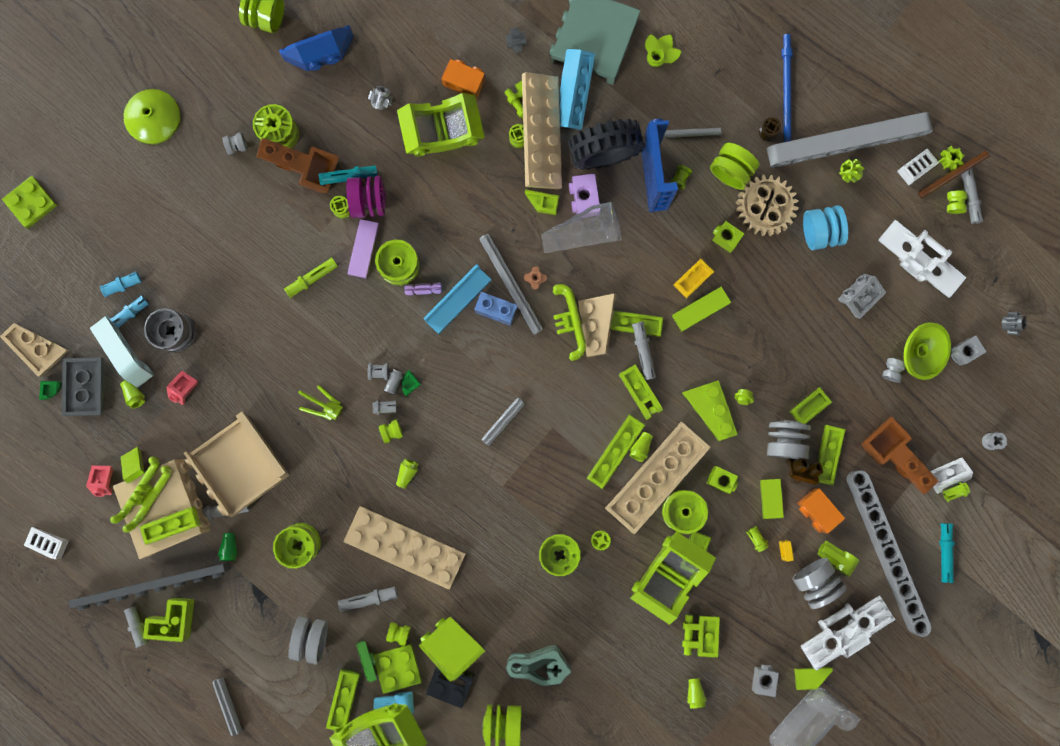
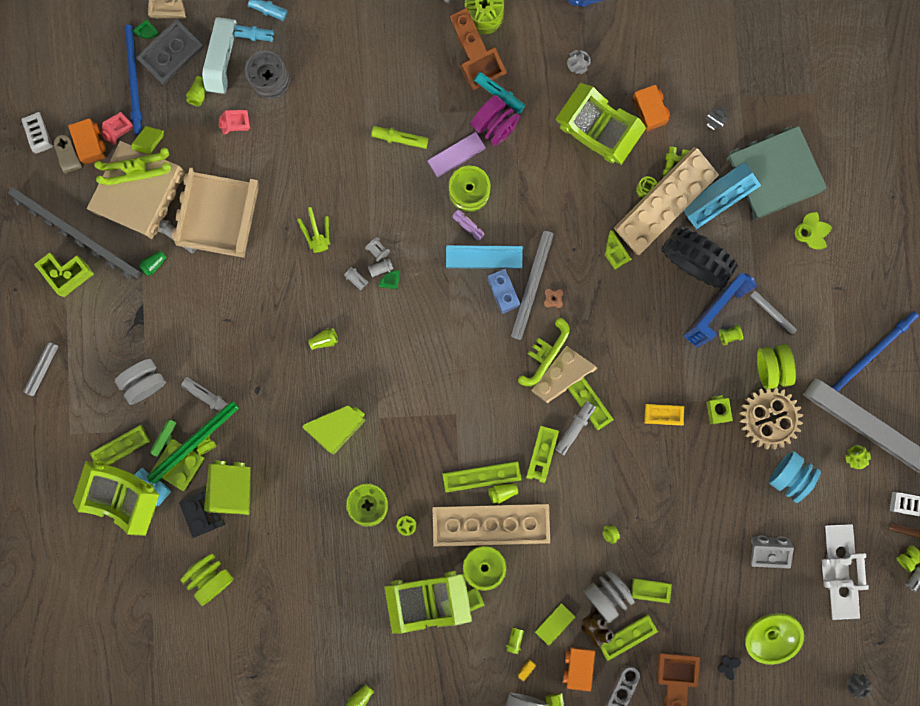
camera: 45 degrees right, 0 degrees up
(87, 536) = (67, 157): none -> dark tan piece
(89, 511) = (87, 141): none -> orange brick
(104, 455) = (136, 114): none -> blue bar
(135, 626) = (37, 251): light grey pin -> none
(170, 525) = (130, 207): lime tile -> none
(285, 545) = (188, 310): lime wheel -> none
(342, 211) = (468, 111): lime wheel -> none
(391, 642) = (192, 442): none -> green axle
(392, 431) = (342, 299): lime wheel -> none
(404, 547) = (269, 388): tan plate -> none
(481, 525) = (335, 428): none -> lime slope
(503, 421) = (423, 374): light grey axle -> none
(532, 661) = (273, 557): sand green piece -> none
(587, 185) = (658, 271): lavender brick -> none
(589, 228) = (628, 303): clear wedge -> none
(701, 309) = (646, 441): lime tile -> none
(707, 636) = (409, 669): lime plate -> none
(713, 409) = (580, 519): lime wing -> none
(713, 480) = (530, 566): lime brick -> none
(768, 133) = (827, 367): dark brown wheel -> none
(894, 370) = (737, 627): light grey wheel -> none
(915, 402) = (728, 666): none -> black piece
(974, 347) = (811, 674): light grey brick -> none

